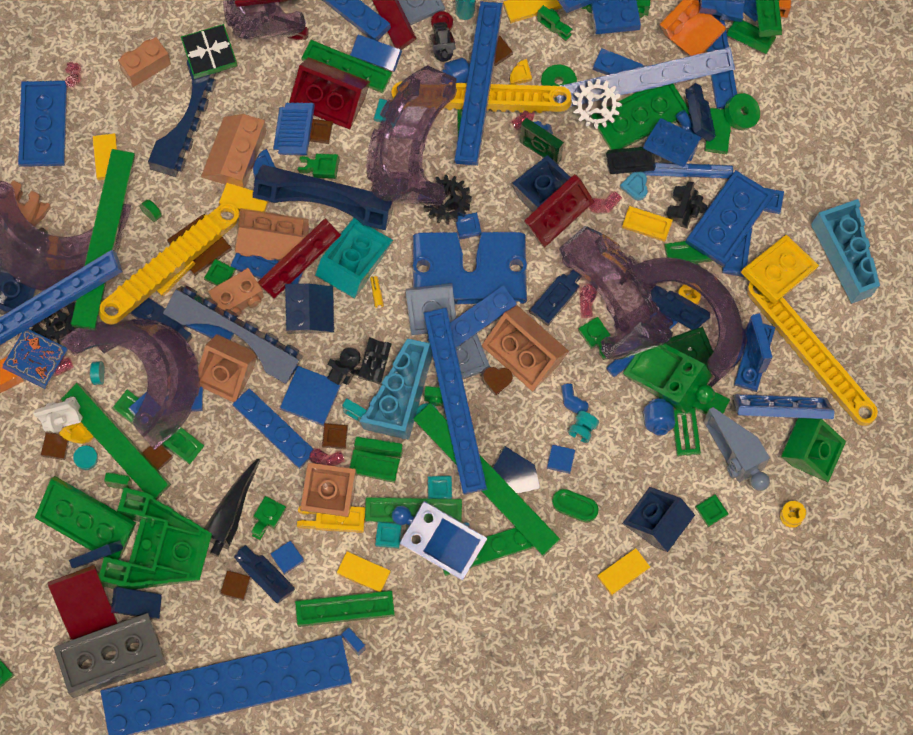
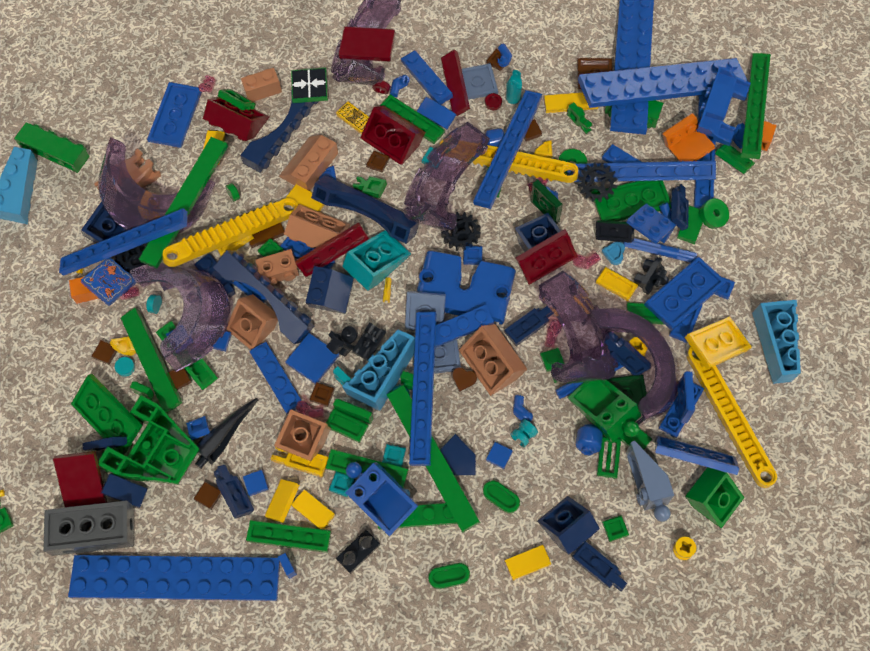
camera: 20 degrees right, 5 degrees down
(59, 415) = (113, 328): white hips -> none
(118, 87) = (236, 99): none -> green tile
(123, 111) = (234, 120): none -> dark red slope
(200, 509) = (198, 428): none -> blue tile
(267, 514) = (250, 444): green plate -> none
(273, 79) = (353, 117): none -> yellow tile
(294, 128) = (358, 155): blue window -> none
(316, 23) = (398, 84): none -> blue arm
(325, 570) = (282, 501): none -> yellow tile
(428, 606) = (358, 551): none -> black tile
(442, 42) = (488, 115): black hips -> none
(539, 608) = (449, 576): none -> green tile
(704, 557) = (599, 566): none -> dark blue hinge

